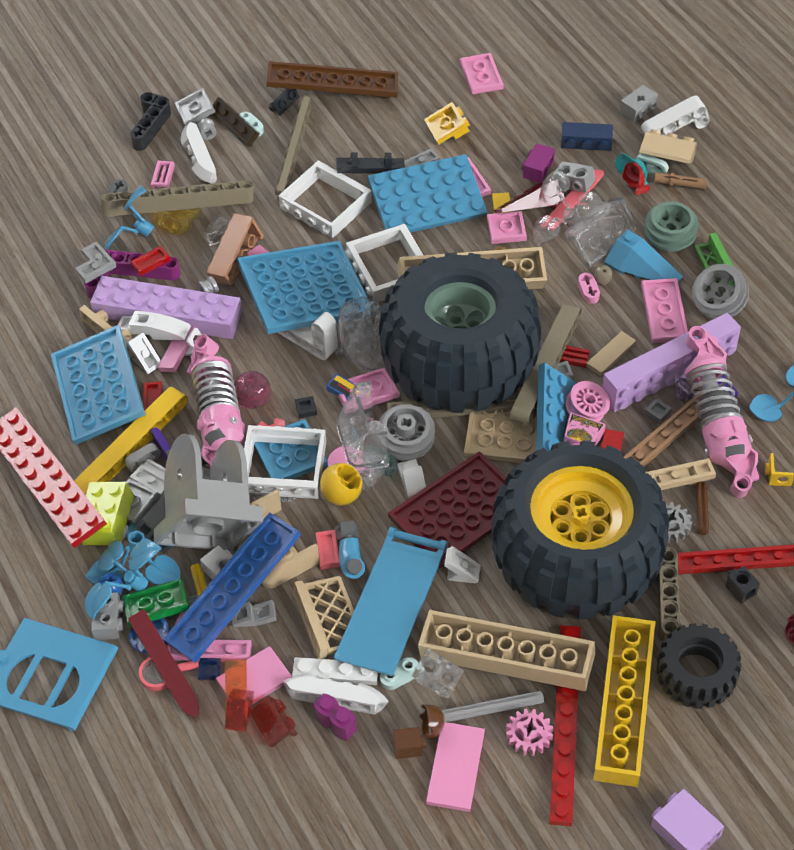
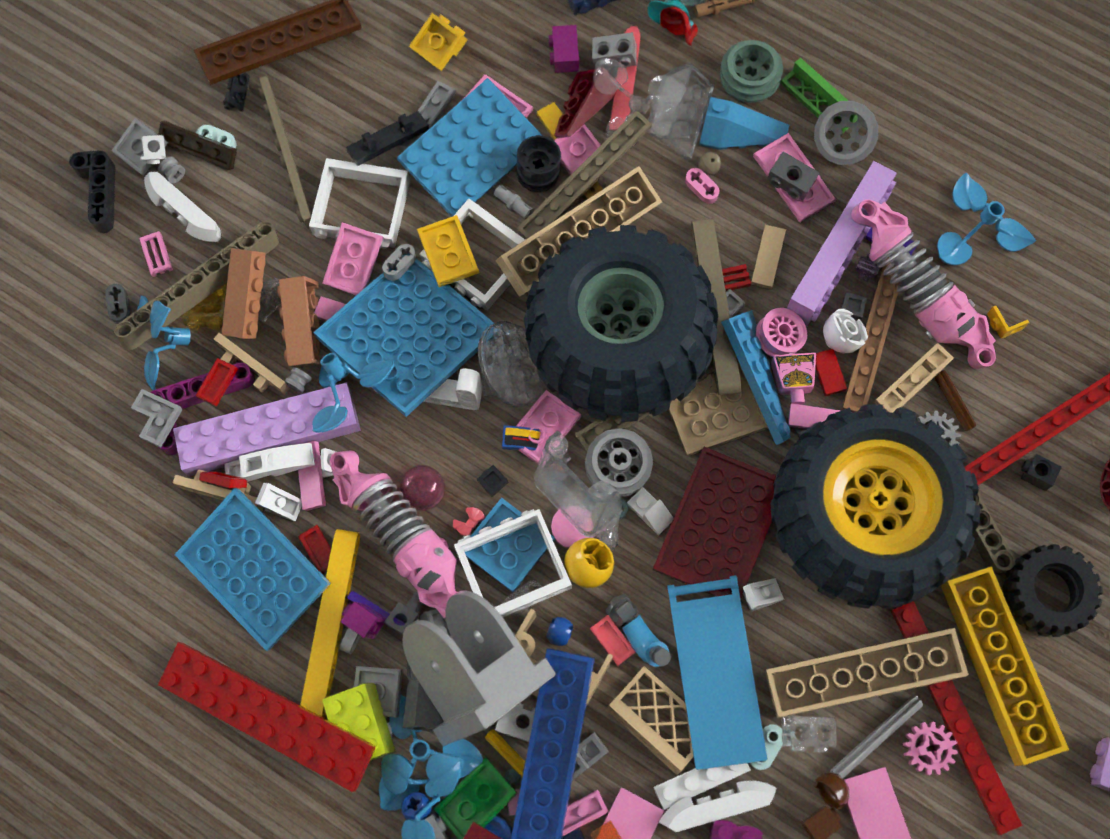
camera: 25 degrees left, 20 degrees up
(114, 320) = (223, 479): none -> red tile
(150, 475) = (382, 652): white plate -> none
(151, 440) = (363, 620): none -> magenta brick
(186, 275) = (265, 377): none -> tan hinge
(198, 114) = (150, 157): none -> white bracket
(204, 215) = (243, 293): none -> nougat brick
(236, 278) = (333, 371): none -> dark azure plant
(293, 519) = (559, 631): none -> blue piece
(296, 227) = (352, 259): none -> bright pink tile
(327, 242) = (401, 263): none -> light grey beam
(367, 248) = (448, 251): none -> yellow tile
(437, 241) = (513, 202): none -> light grey pin
(470, 222) = (538, 163): none -> black wheel
(518, 236) = (586, 174): none -> dark tan plate
(637, 420) = (843, 332): none -> white cylinder
(660, 304) = (786, 166): none -> dark grey brick

